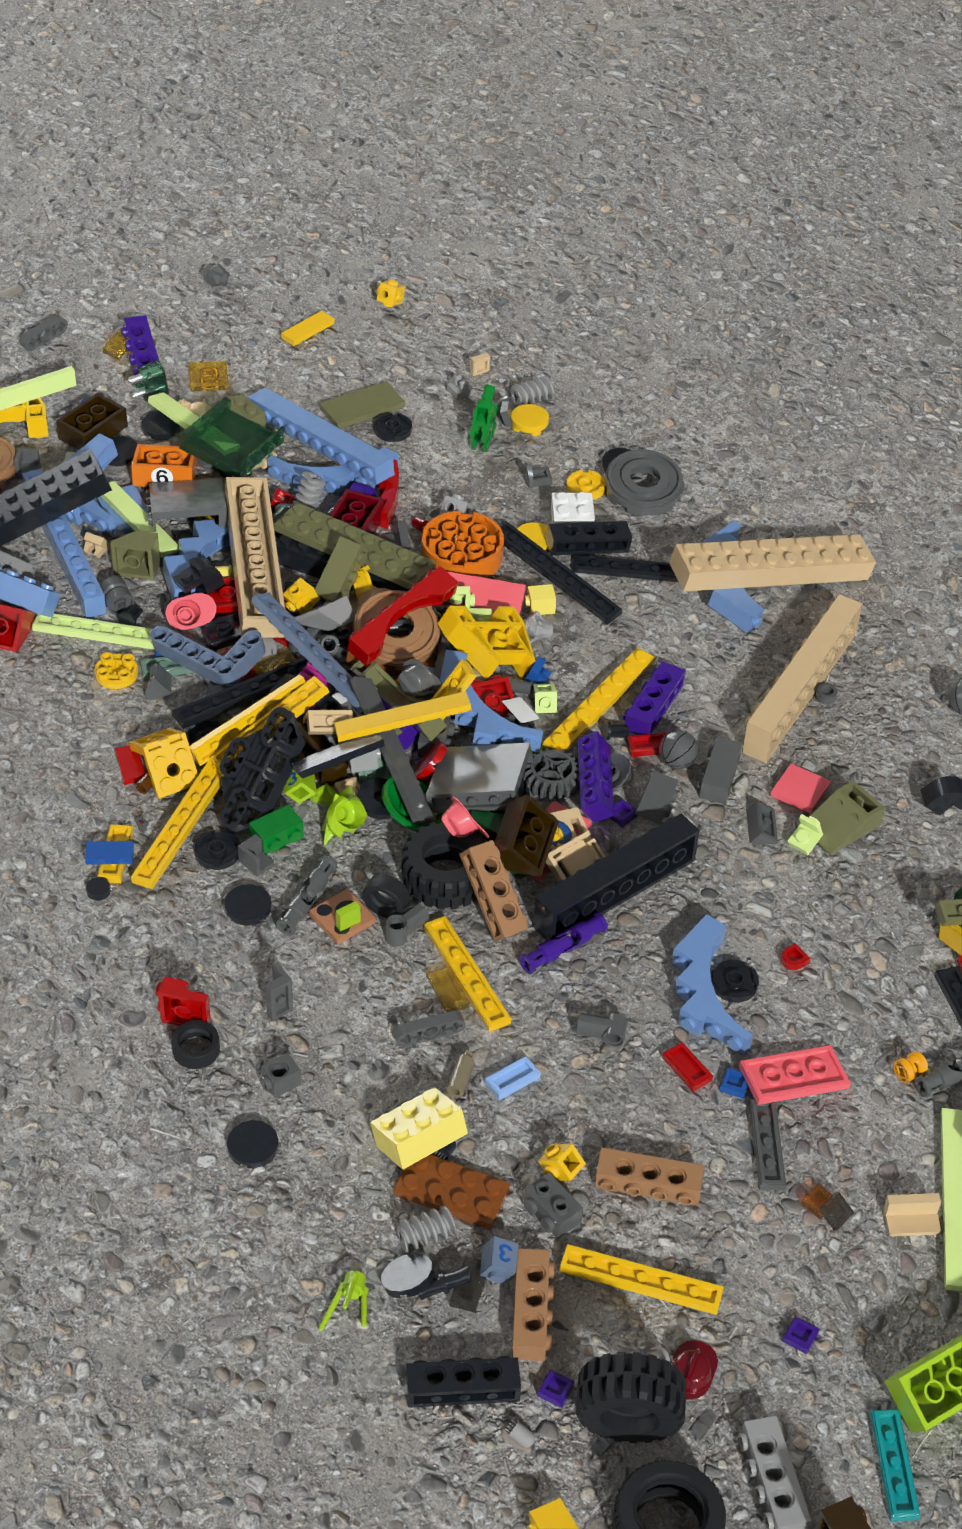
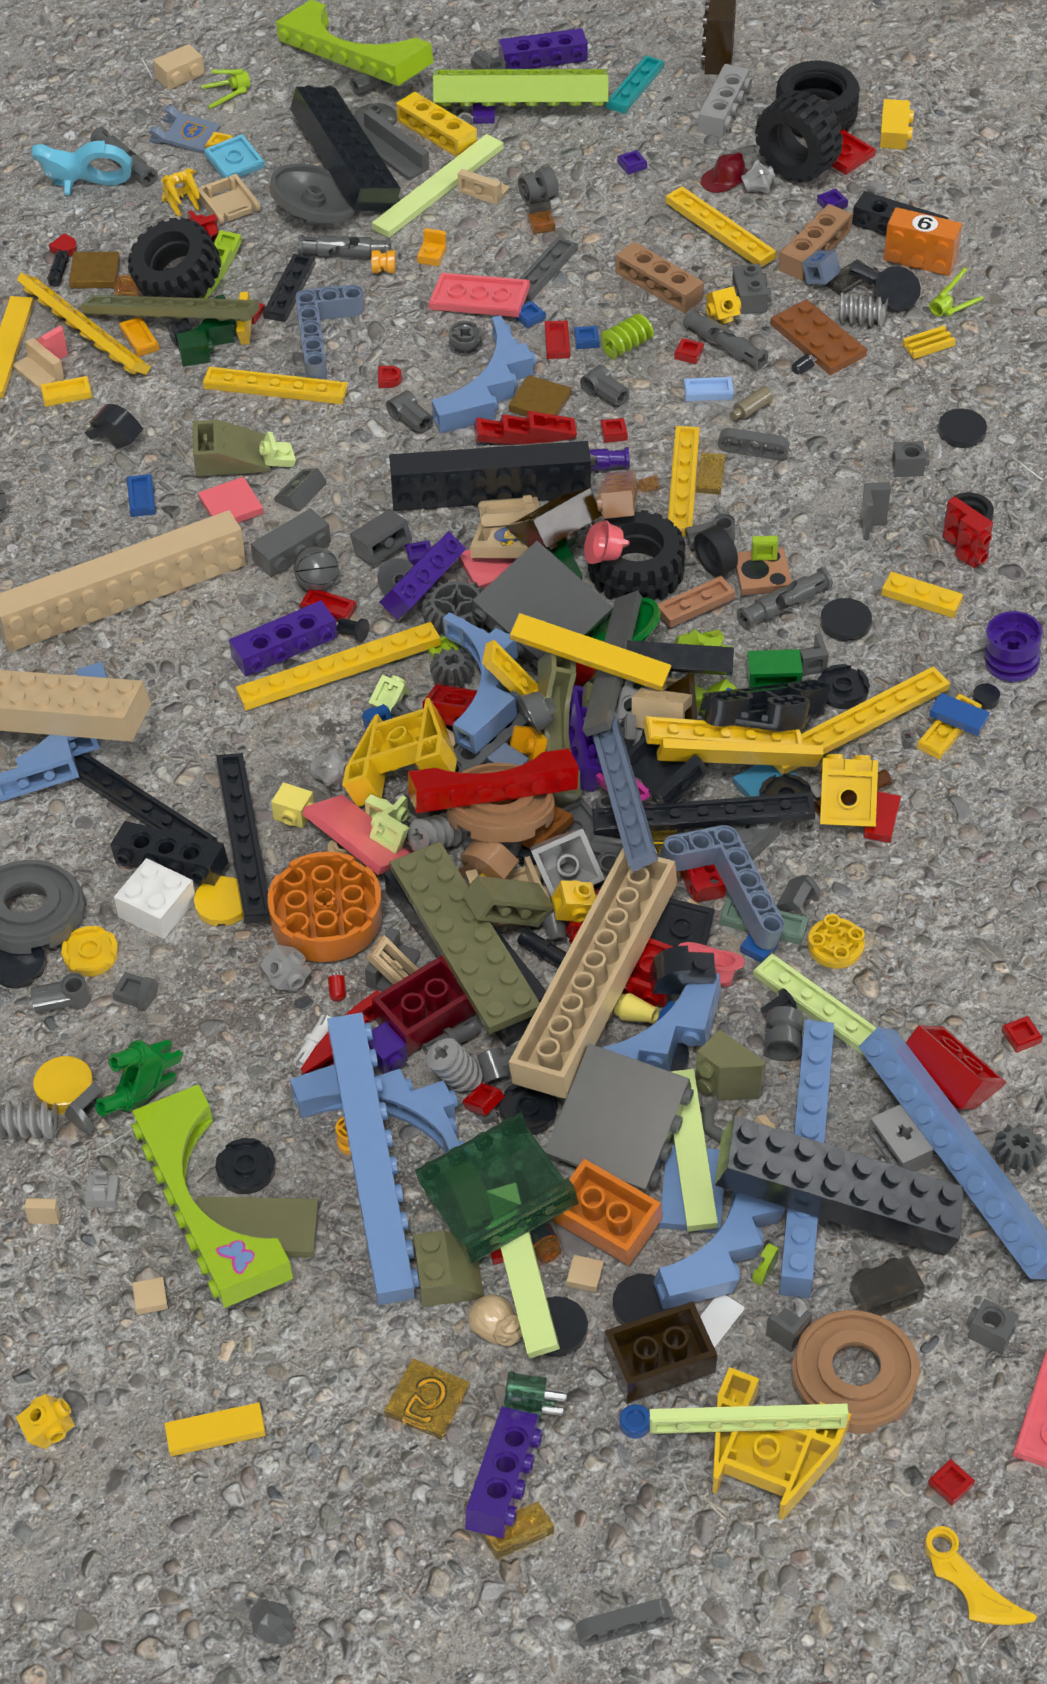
camera: 145 degrees left, 5 degrees up
(91, 917) = (1013, 646): none -> dark purple wheel
(197, 955) = (922, 594): none -> yellow plate
(331, 1231) = (928, 342): none -> yellow tile
(353, 371) = (234, 1262): none -> lime arch
(376, 860) = (696, 601): none -> nougat plate
(390, 360) = (150, 1295): none -> tan tile
(393, 529) = (384, 964): none -> tan tile
(406, 489) = (311, 1041): none -> white pin
(414, 1337) = (922, 241): none -> orange brick
(419, 1128) = (821, 365): light yellow brick -> none
(492, 956) = (650, 483): none -> clear orange piece
(508, 1129) = (736, 346): none -> dark grey piece
(520, 709) = (436, 671): white sticker -> none
(560, 1112) = (689, 351): none -> red tile
(562, 994) = (613, 430): none -> red tile
(573, 453) = (61, 994): none -> dark grey piece
(592, 1477) = (853, 153): none -> red tile
(623, 1088) = (626, 335): none -> lime piece
(634, 955) = (533, 429): none -> red slope
(648, 994) = (539, 396): none -> pearl gold tile
(663, 1082) = (586, 337): none -> blue tile
(734, 981) = (453, 377): black tile -> none
(748, 925) = (406, 408): none -> dark grey piece
(772, 1022) = (465, 337): none -> dark grey wheel
(857, 1232) = (538, 185): none -> dark grey wheel
(872, 766) = (141, 495): none -> blue tile
(874, 905) = (275, 385): none -> yellow tile
(885, 1110) = (433, 247): none -> light orange bracket
(916, 978) = (318, 305): none -> sand blue beam

